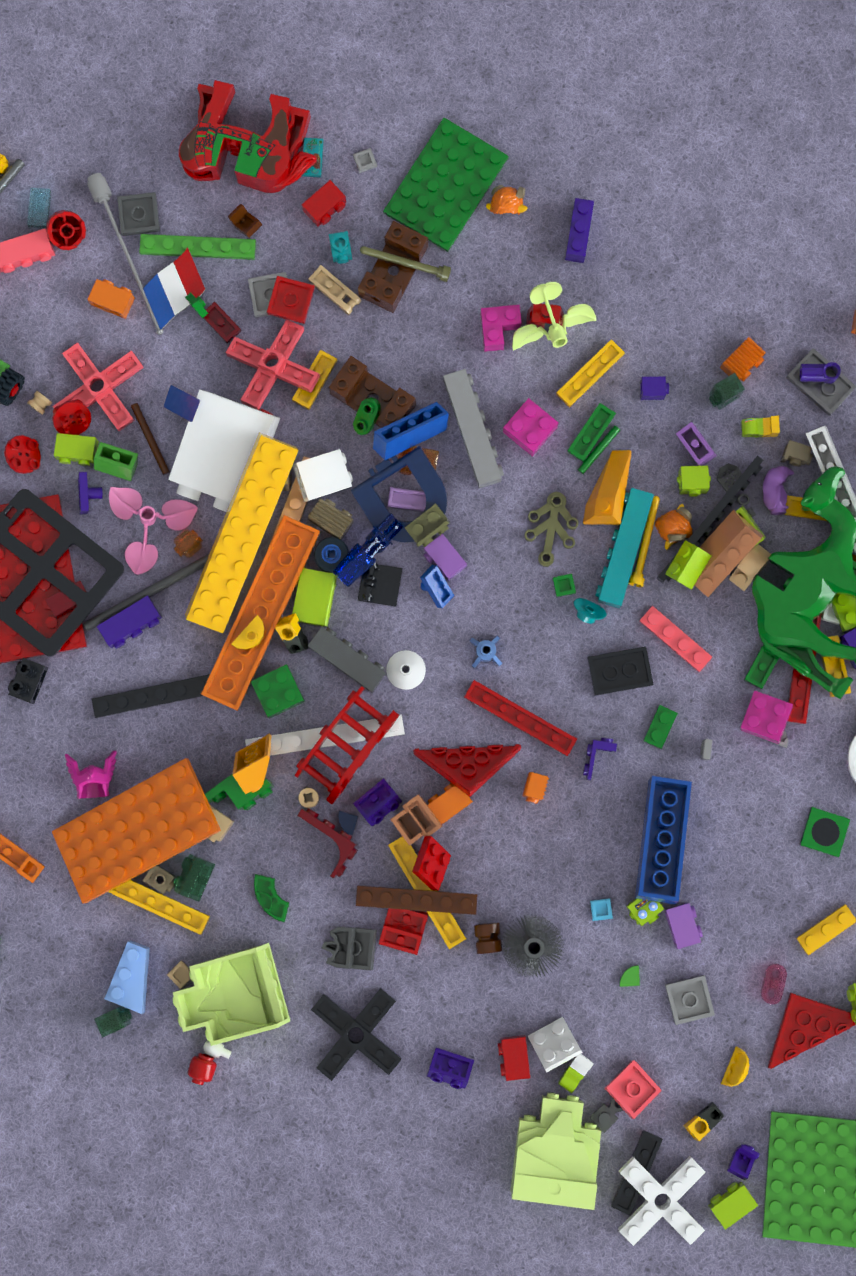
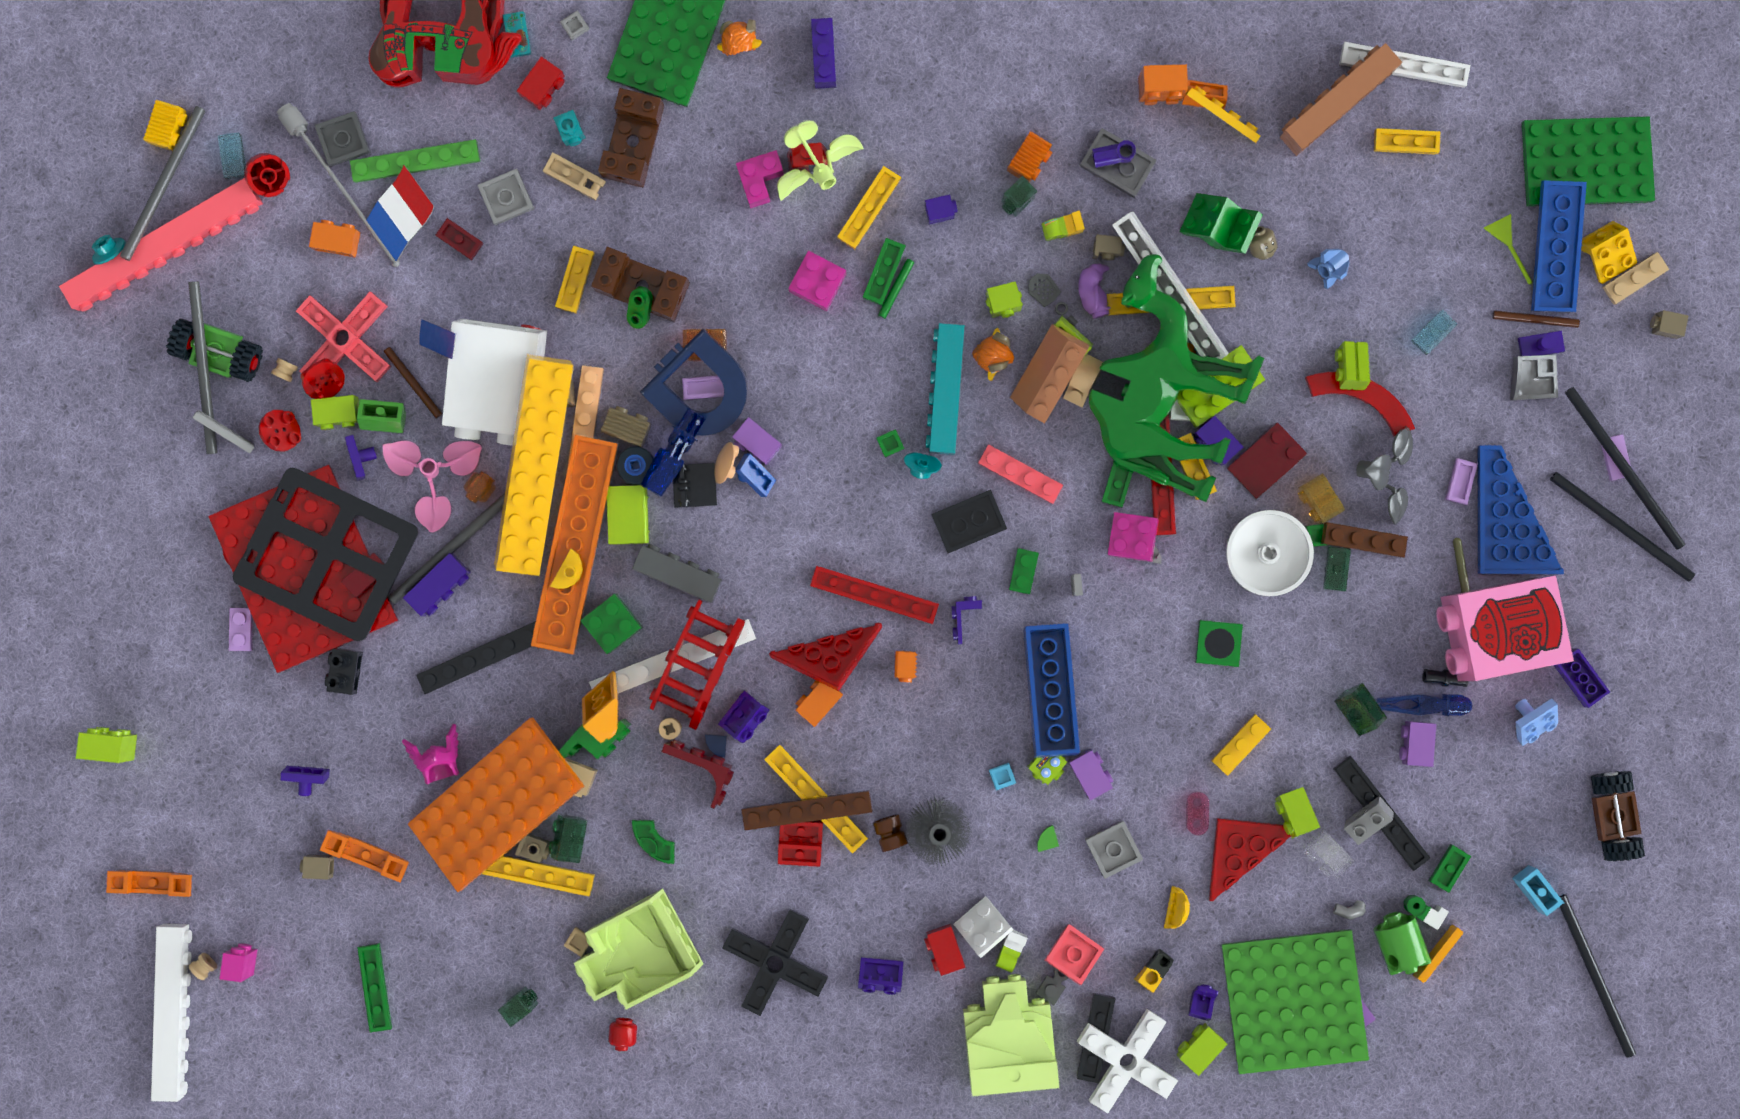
camera: 15 degrees left, 5 degrees up
(130, 978) = (526, 958): light blue wedge -> none
(197, 304) = (428, 225): green plate -> none
(216, 1050) = (633, 1012): white cylinder -> none
(244, 221) = (459, 122): reddish brown bracket -> none
(283, 370) = (538, 277): coral piece -> none
(290, 299) = (528, 198): red plate -> none
(292, 634) = (612, 559): leg -> none
(322, 475) = (606, 382): white brick -> none
(351, 948) = (750, 875): dark grey plate -> none
(406, 680) = (753, 573): white dish -> none
(410, 430) = (689, 314): blue brick -> none
(412, 569) = (724, 463): none -> light nougat dish
(416, 820) = (787, 728): nougat plate -> none
(428, 525) = (730, 412): olive bracket -> none
(431, 863) = (814, 769): red plate -> none
(441, 272) = (685, 132): olive piece -> none
(472, 428) = (755, 295): light grey brick -> none
(481, 655) = (829, 532): medium blue brick -> none
(551, 526) = (863, 381): olive plant -> none
(608, 495) = (916, 337): light orange wedge -> none
(637, 576) = (966, 417): yellow piece -> none
(688, 564) = (1016, 393): lime brick -> none
(696, 444) = (998, 261): medium lavender brick -> none
(717, 513) = (1035, 331): black plate -> none

